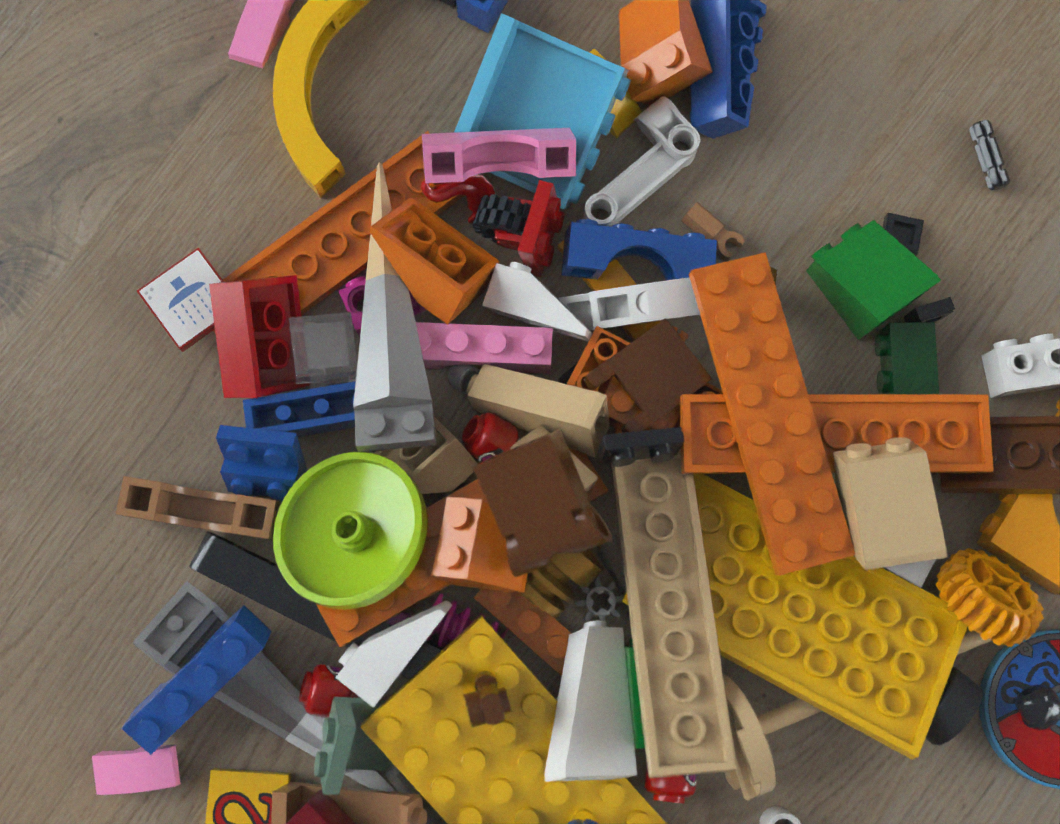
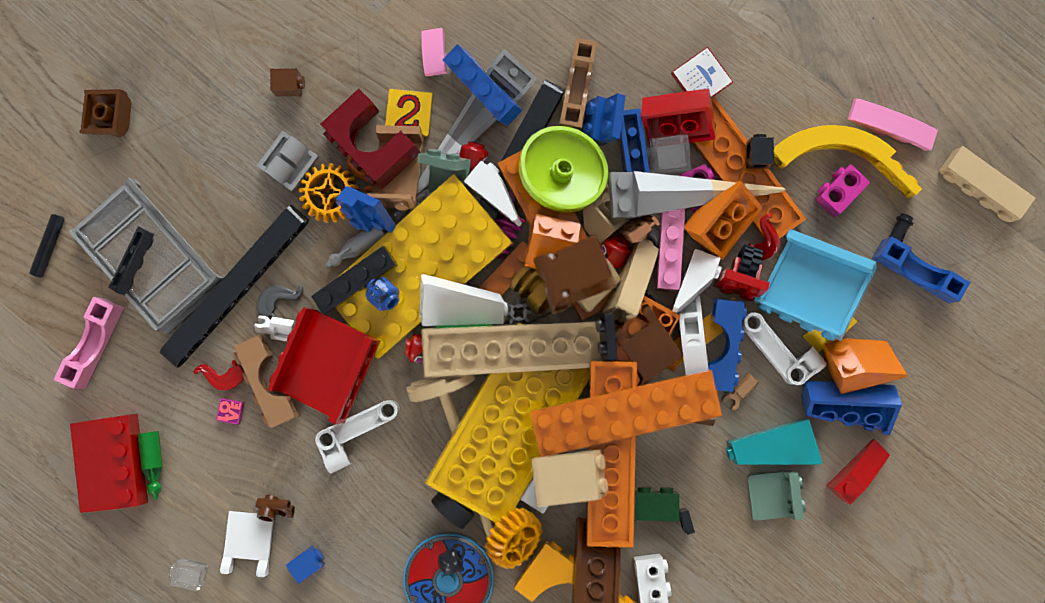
camera: 90 degrees right, 5 degrees up
(317, 202) = (760, 152): none -> black brick
(385, 73) = (844, 193): none -> dark pink brick
(451, 399) = (637, 229): none -> nougat plate
(487, 703) = (464, 243): reddish brown plate -> none
(529, 151) = (787, 236): bright pink arch -> none
(796, 169) = (779, 445): none -> teal slope
(831, 49) = (859, 472): none -> red slope
(869, 277) = (708, 484): green slope -> none
(876, 171) = (776, 495): none -> sand green bracket
(905, 230) = (736, 509): black tile -> none
(989, 155) = (787, 569): axle -> none

